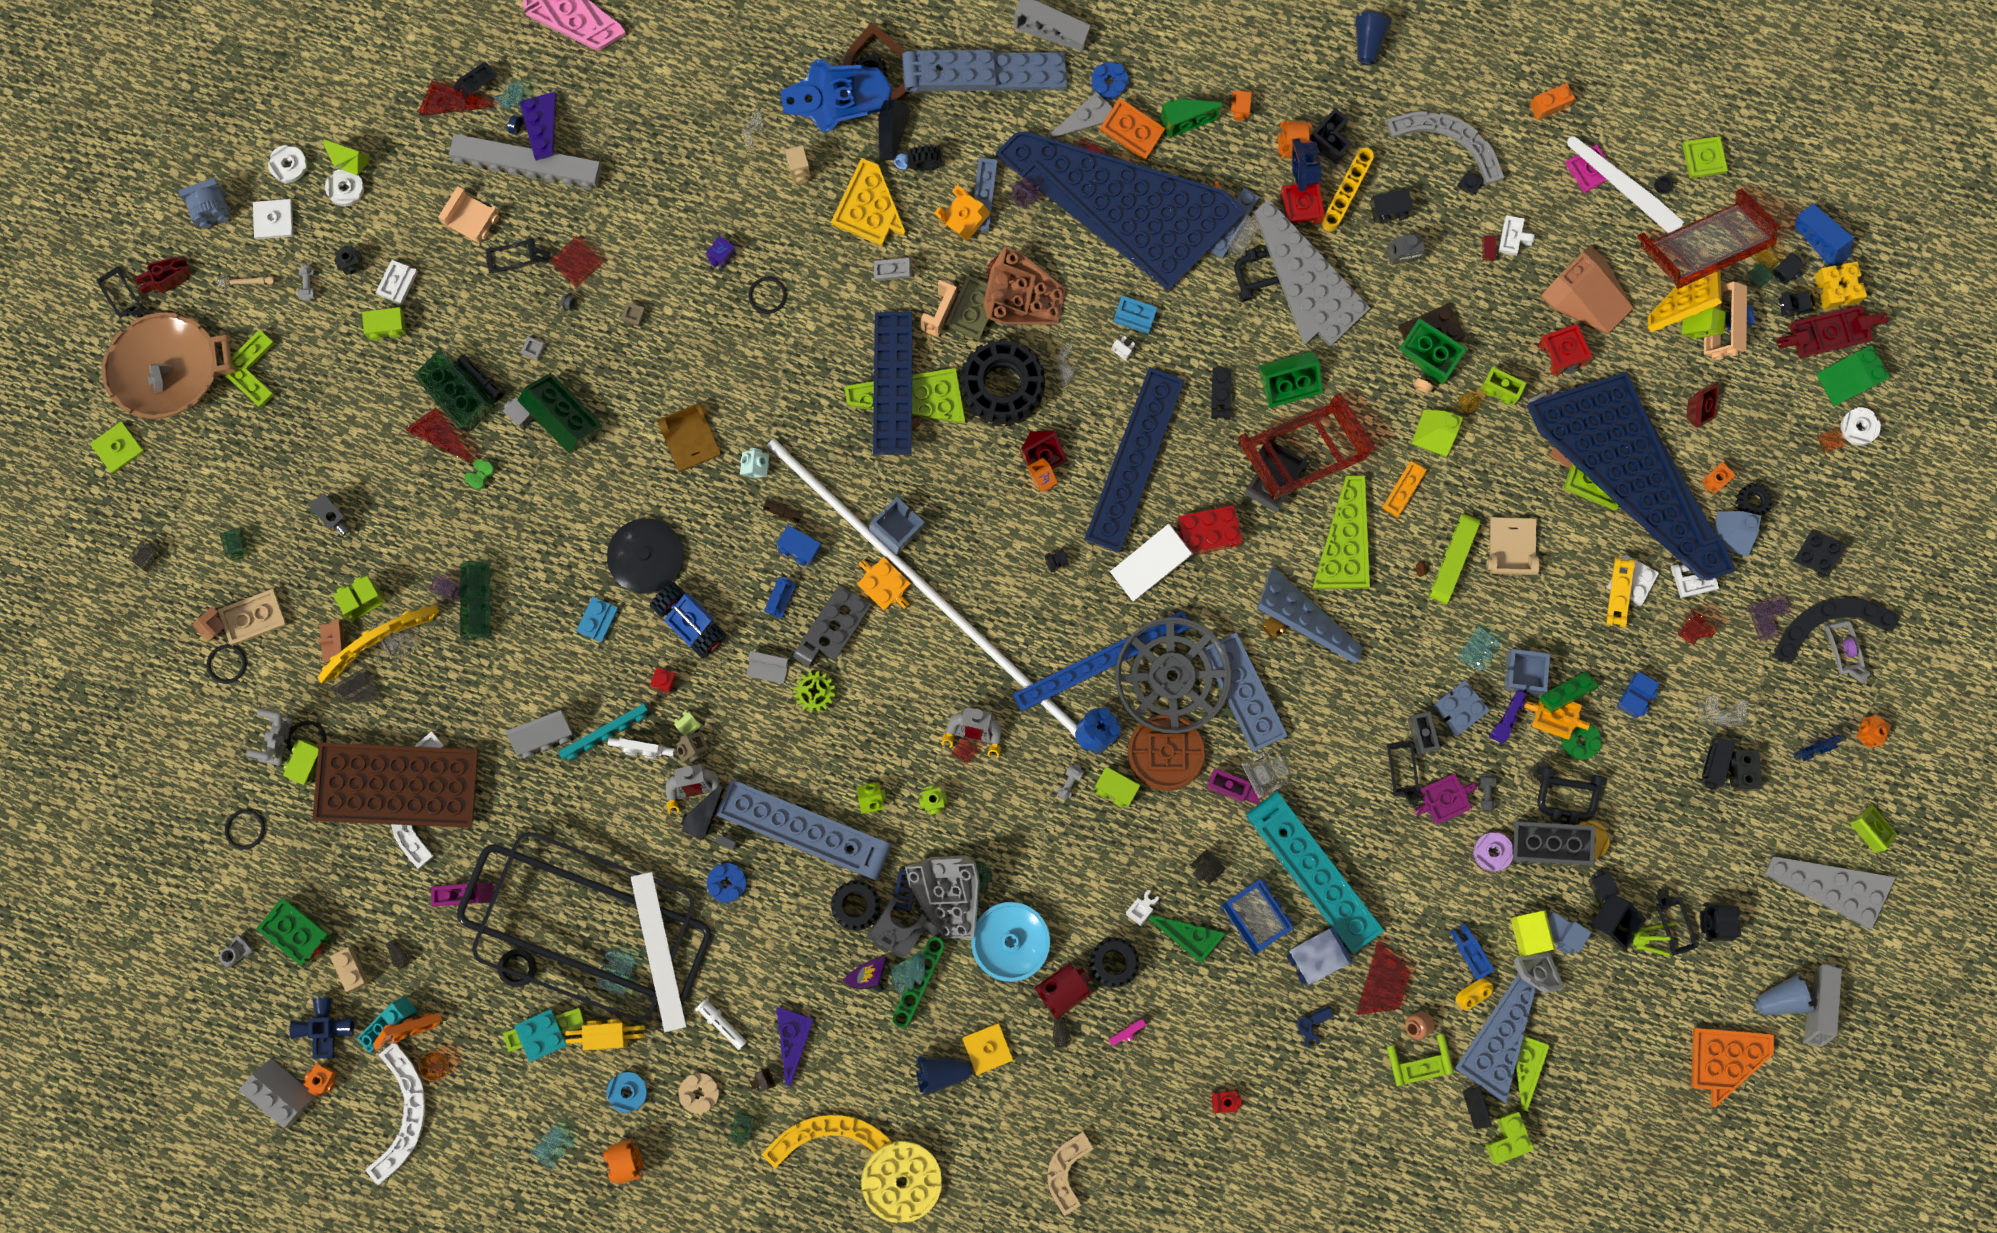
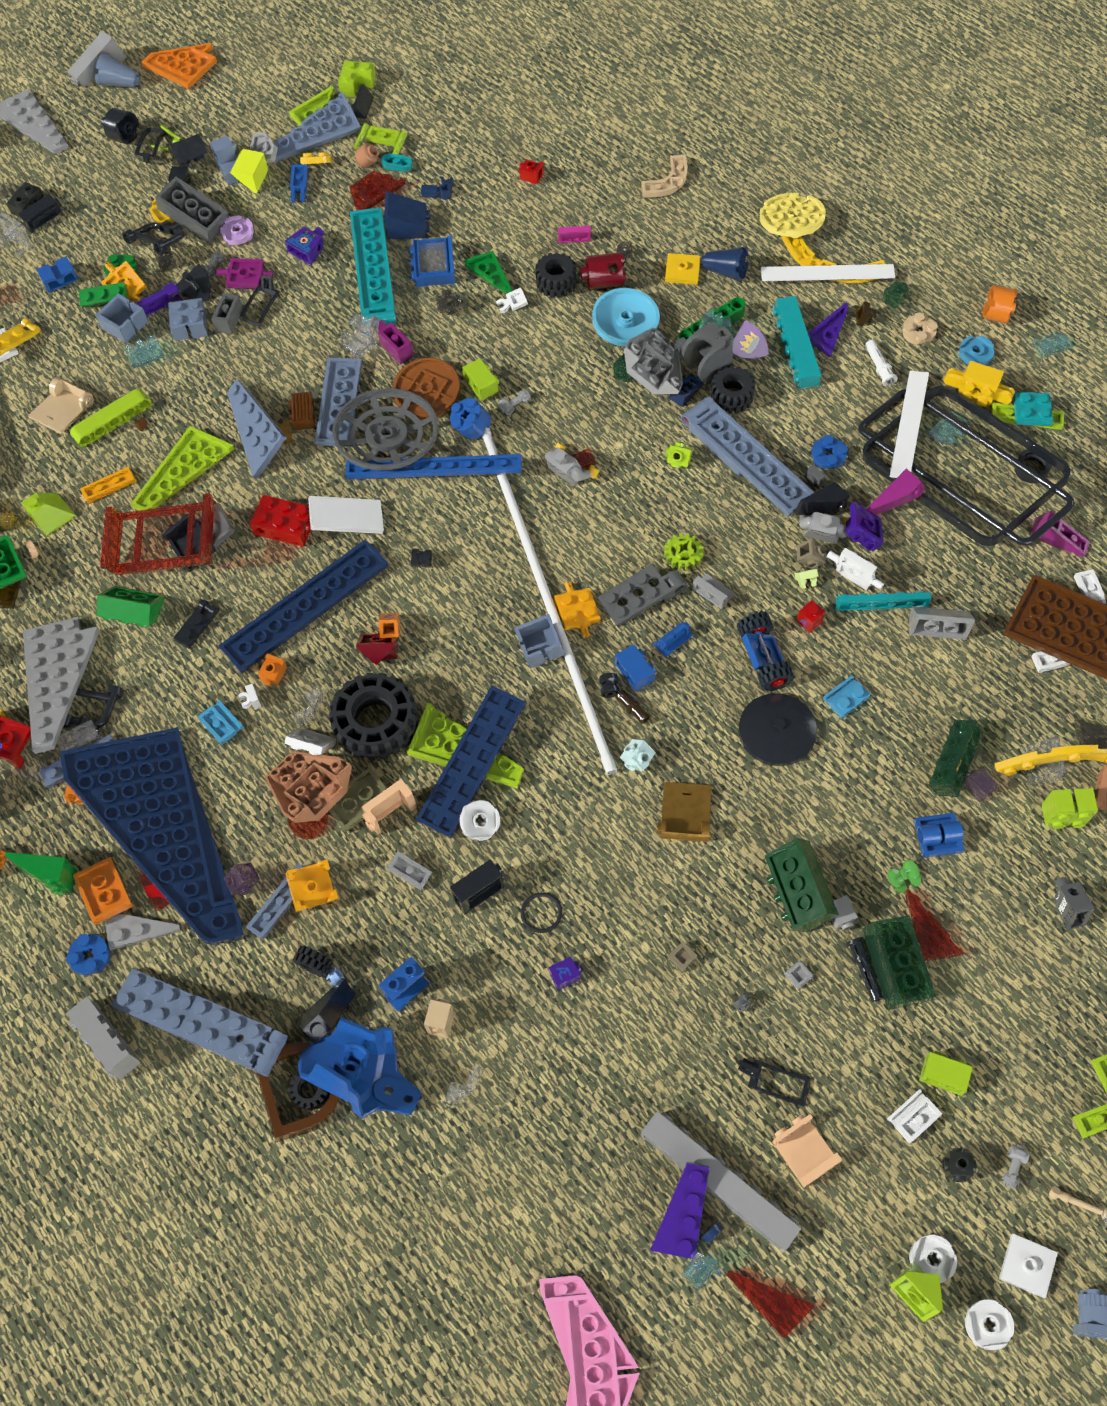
camera: 145 degrees left, 15 degrees down
(464, 524) = (939, 835): none -> blue plate
(475, 79) = (734, 1306): black hinge -> none
(576, 261) = (714, 1043): clear red tile -> none
(630, 854) = (899, 492): none -> magenta slope
(652, 801) = (864, 527): none -> dark purple plate
(813, 519) = (609, 685): none -> black wheel
(818, 1005) = (796, 342): none -> teal brick
(826, 280) = (477, 886): none -> black window
(826, 1117) = (828, 272): none -> white sticker
(839, 173) = (404, 984): none -> blue panel
(863, 344) = (468, 820): none -> white plate
(868, 206) = (393, 941): yellow wing -> none
(936, 807) = (630, 432): lime brick -> none
(1043, 332) = (310, 741): none -> white plate
(1121, 388) = (278, 669): none -> orange brick
(1272, 661) = (302, 411): none -> reddish brown brick
(1382, 1038) = (397, 162): none -> teal plate
(1405, 869) = (306, 244): none -> dark purple torso
(1486, 758) = (195, 284): none -> black shield

